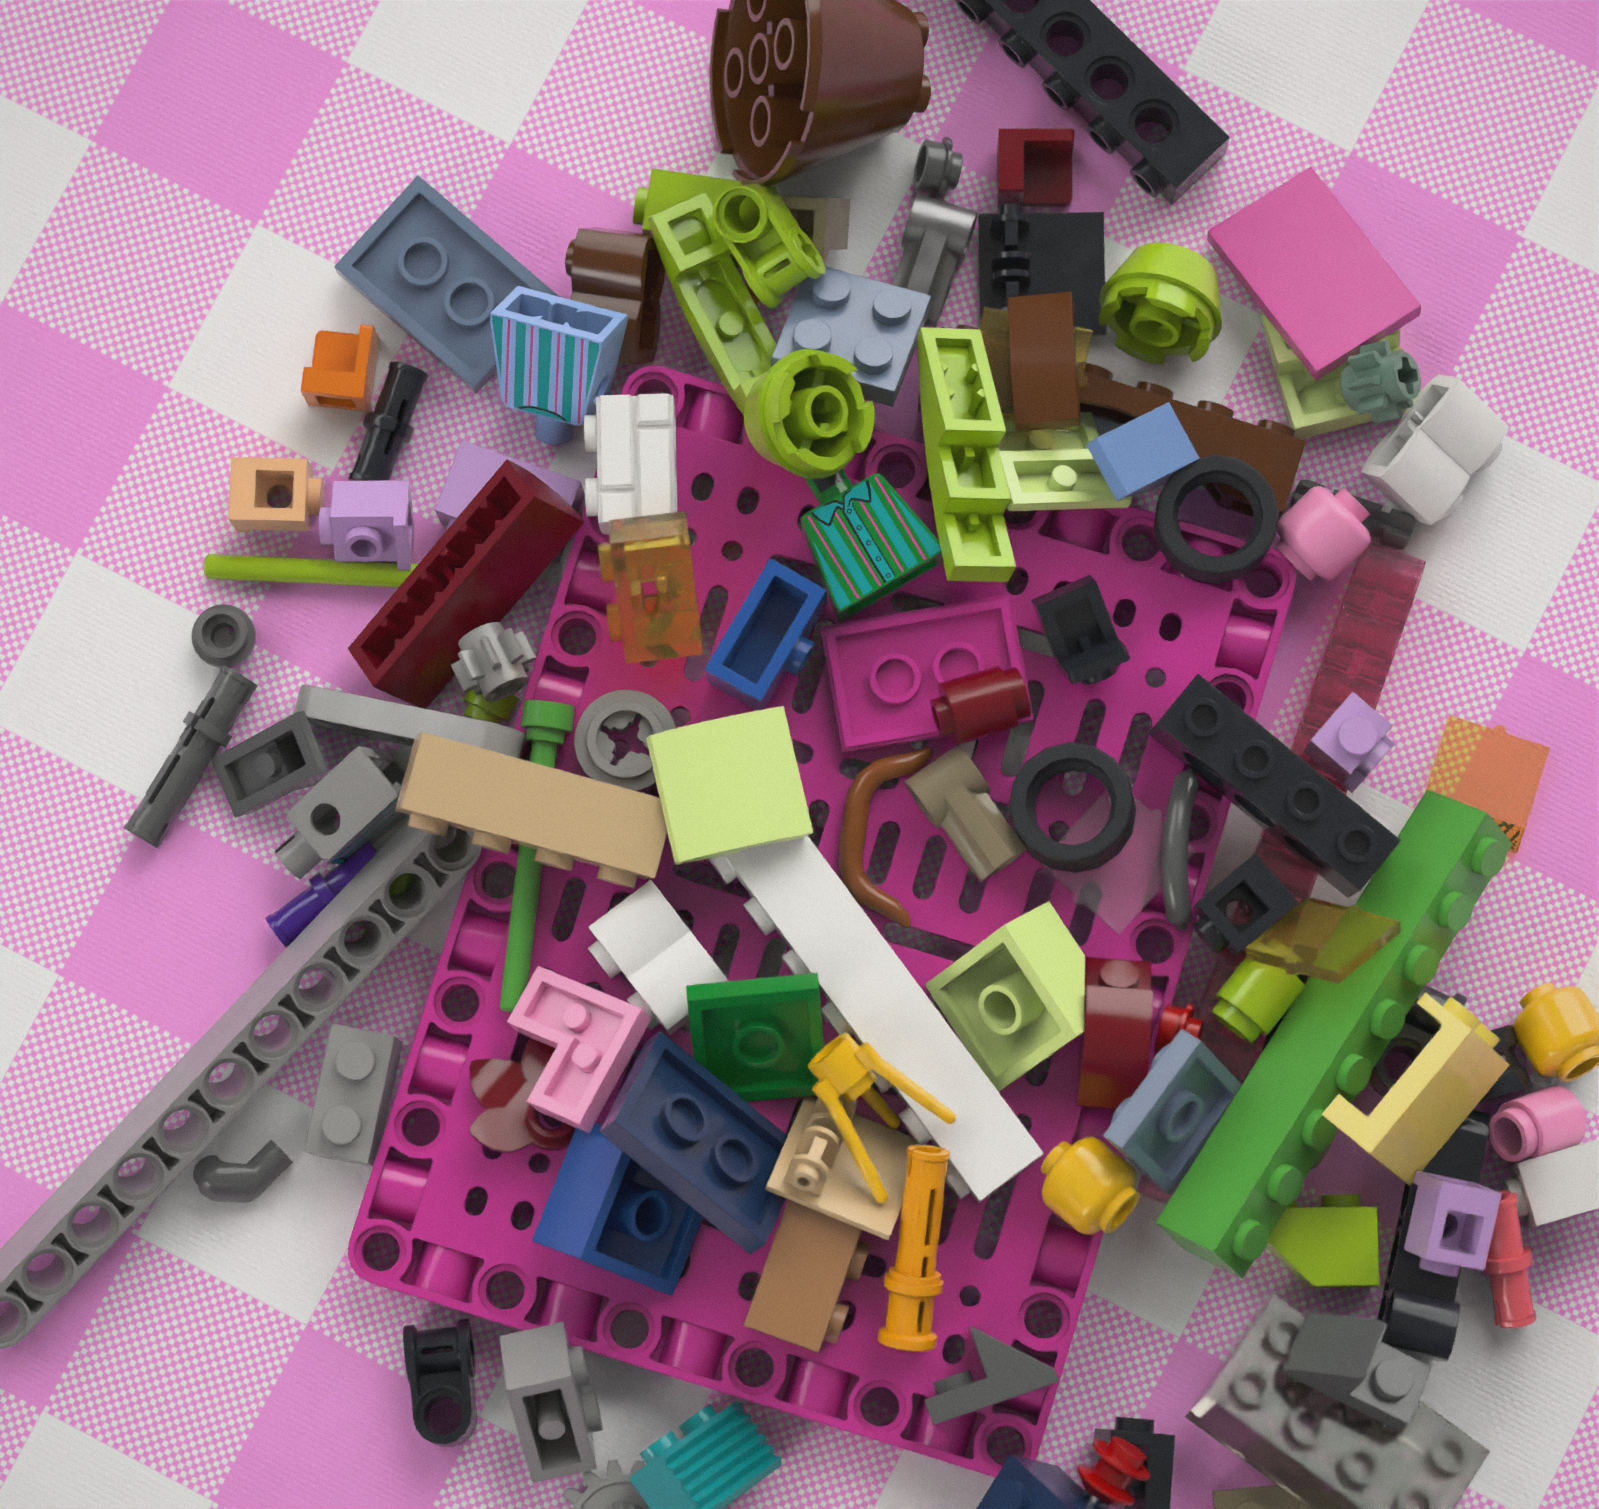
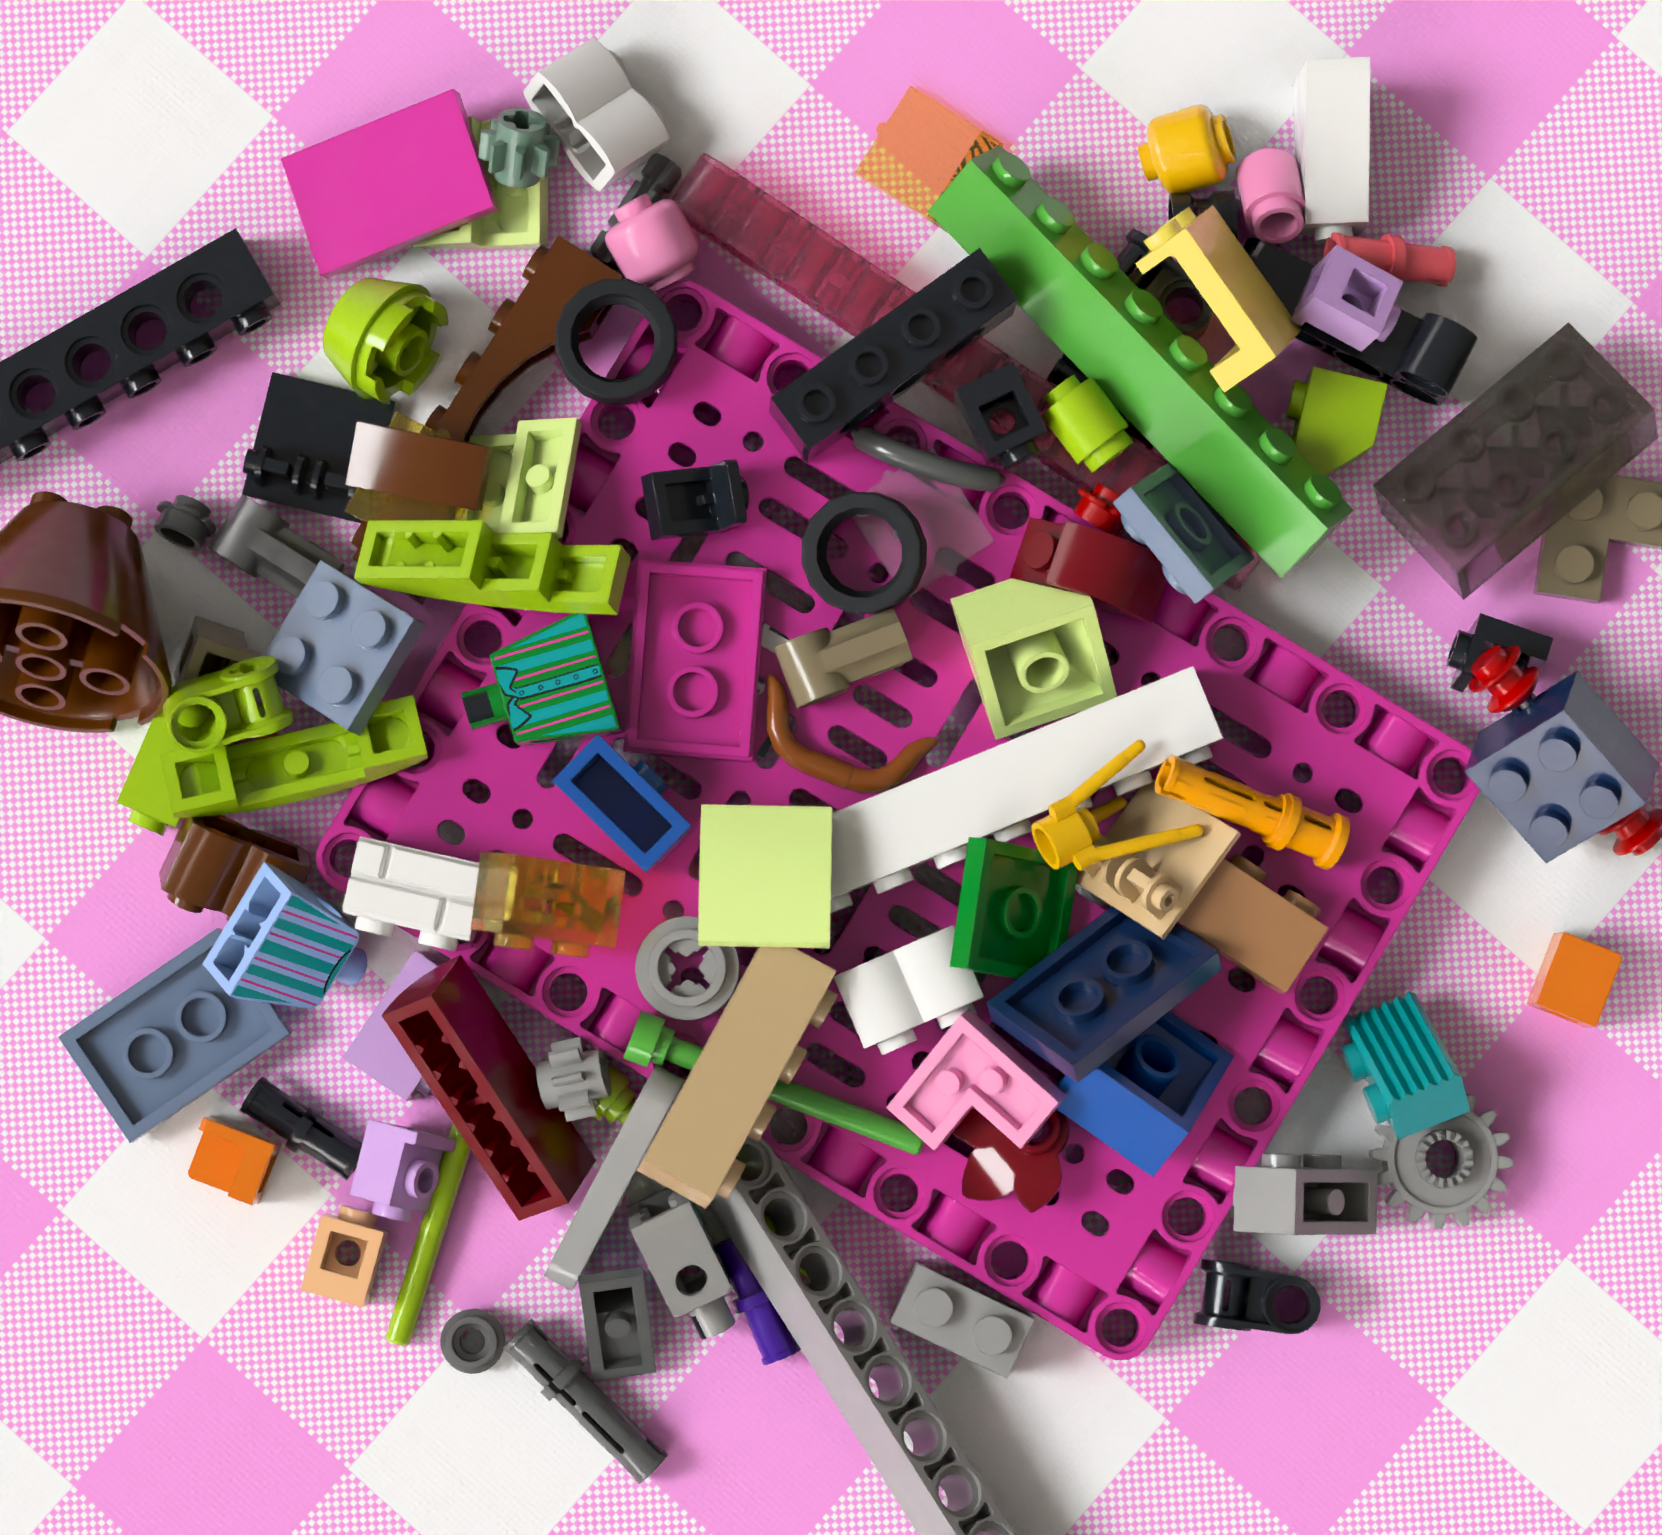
camera: 85 degrees left, 5 degrees up
(238, 1181) = (1014, 1450): dark grey arm -> none
(809, 414) = (418, 707): lime cone -> none
(980, 704) = (743, 614): dark red brick -> none
(1006, 1374) = (1391, 756): dark grey slope -> none
(1035, 166) = (210, 427): dark red panel -> none
(1089, 1185) = (1230, 631): yellow head -> none
(1142, 452) = (535, 394): medium blue slope -> none
(1323, 940) = (1055, 346): clear yellow piece -> none
(1351, 742) = (867, 270): lavender brick -> none
(1353, 1366) = (1464, 424): dark grey slope -> none

